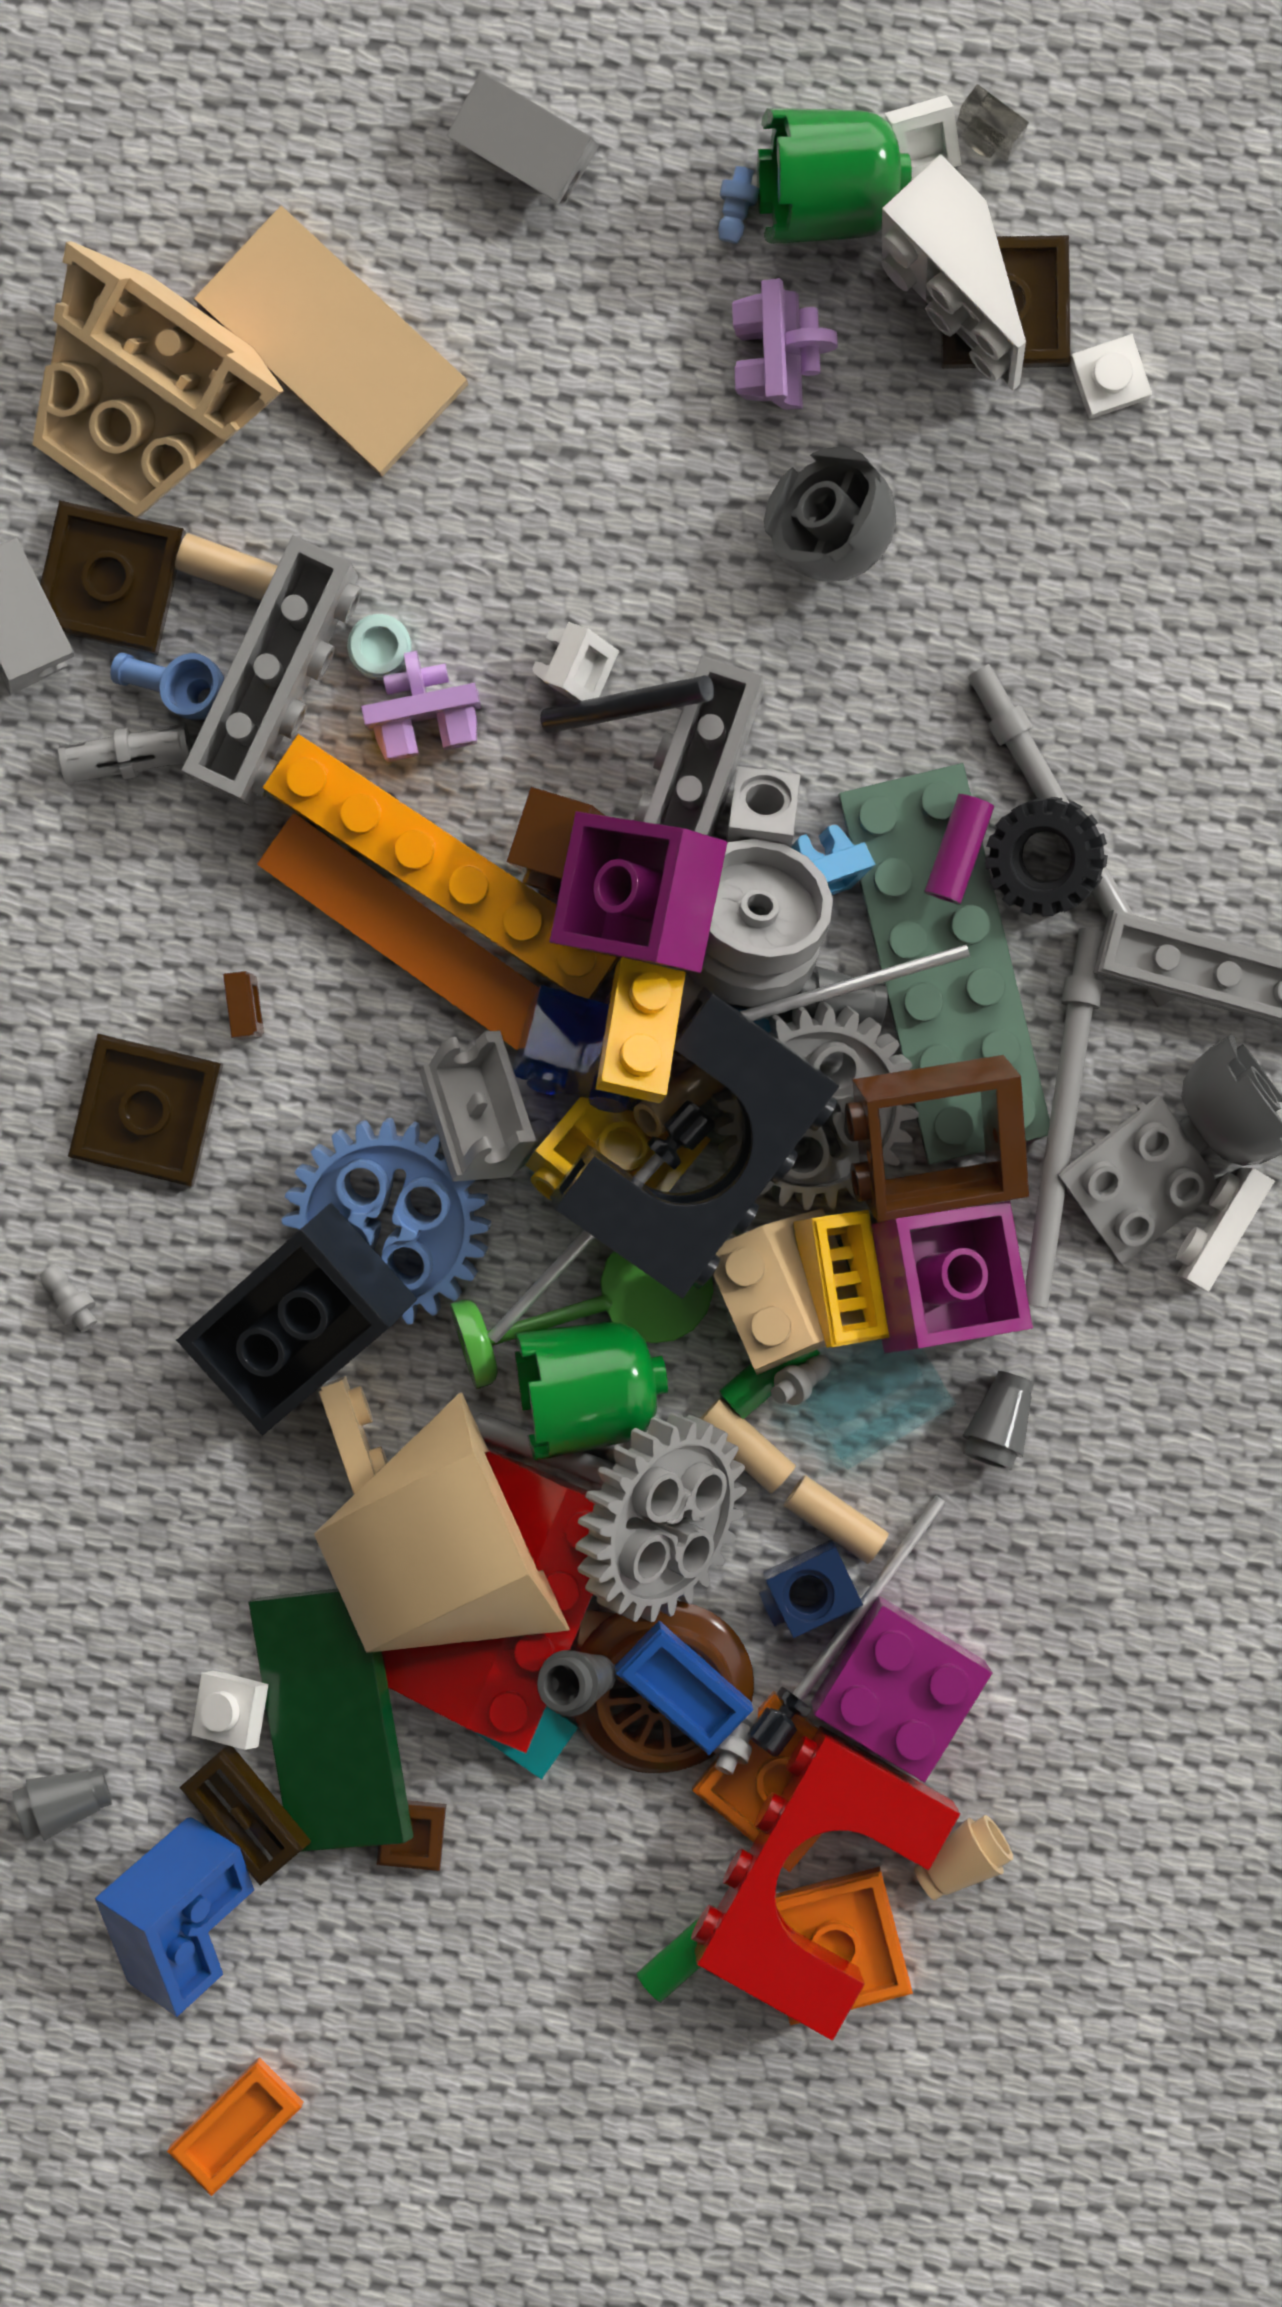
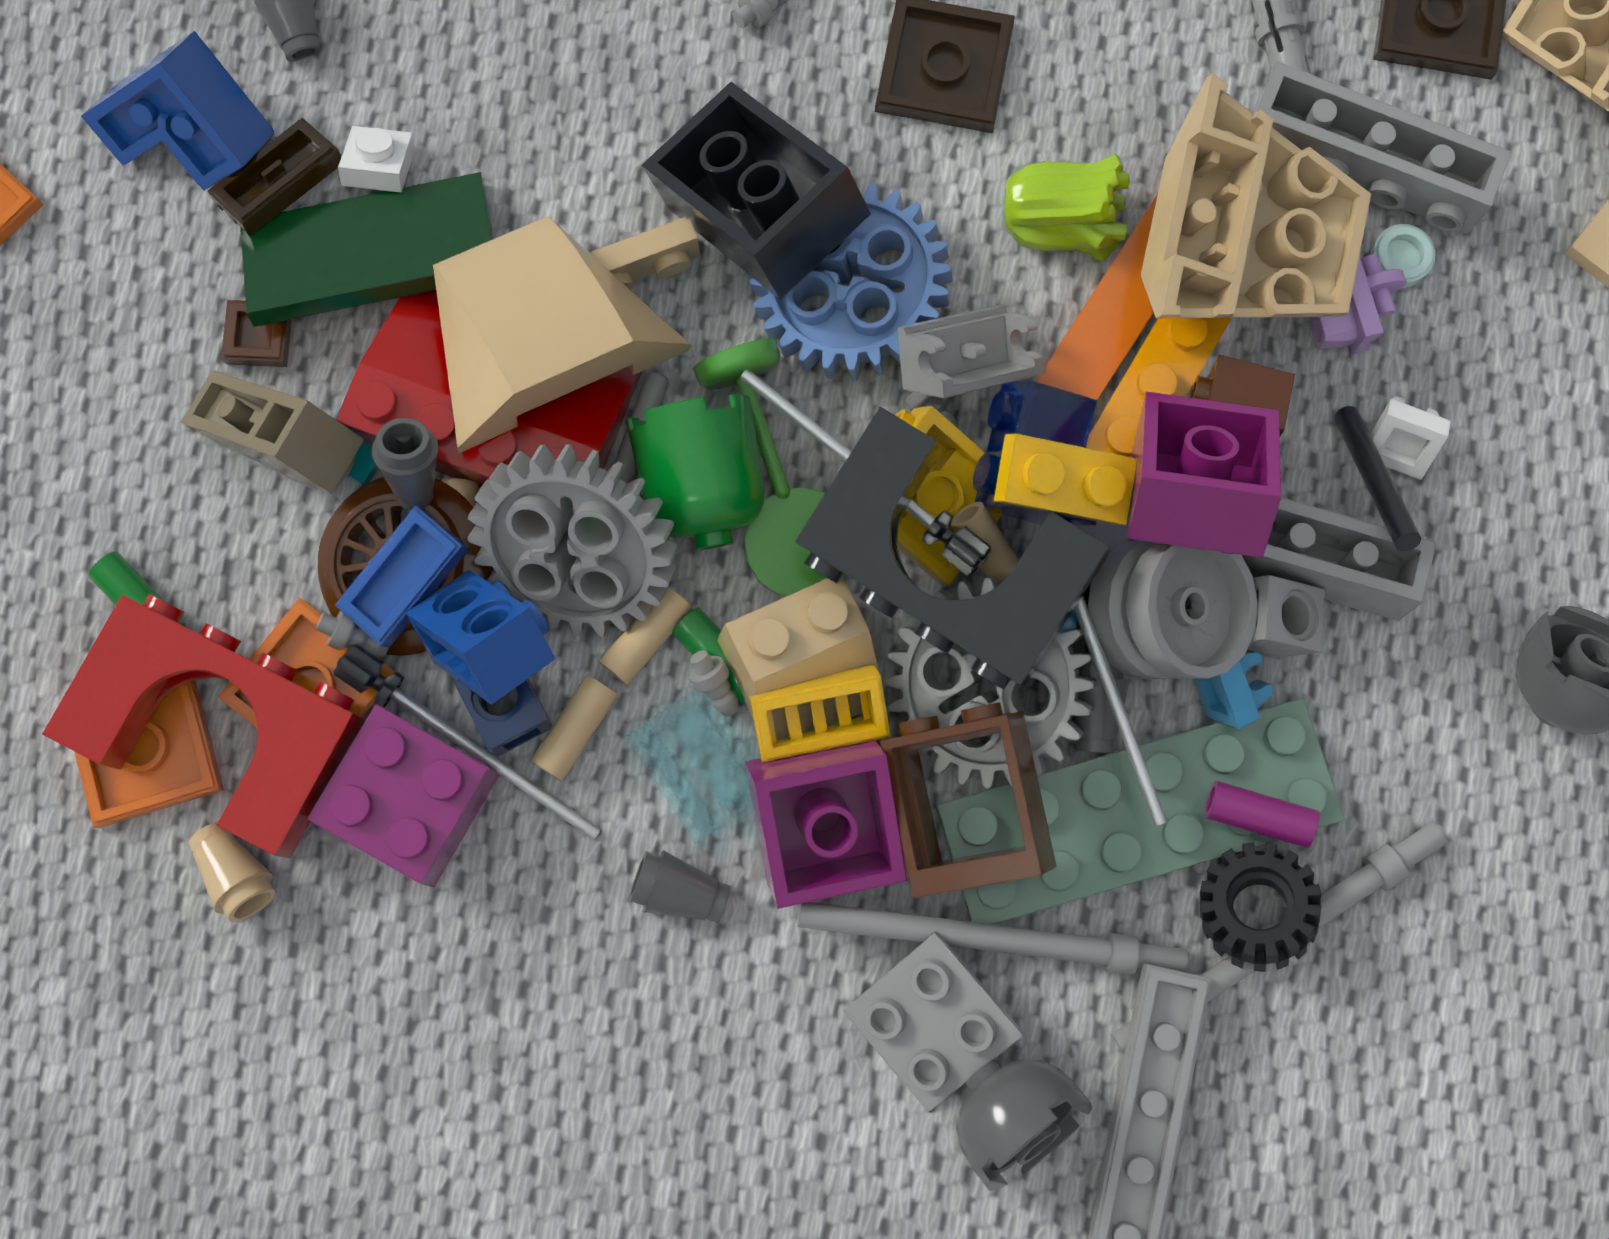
camera: 85 degrees right, 10 degrees down
(177, 683) = (1352, 65): medium blue bar -> none
(224, 566) = (1468, 98): tan hinge -> none
(243, 1005) = (1052, 140): reddish brown tile -> none
(316, 995) = (1067, 206): none -> lime piece
(371, 819) = (1250, 221): none -> tan wedge
(524, 1818) = (274, 430): none -> dark tan slope
(751, 1608) = (482, 635): none -> blue brick
(1209, 1249) = (916, 1123): white plate -> none

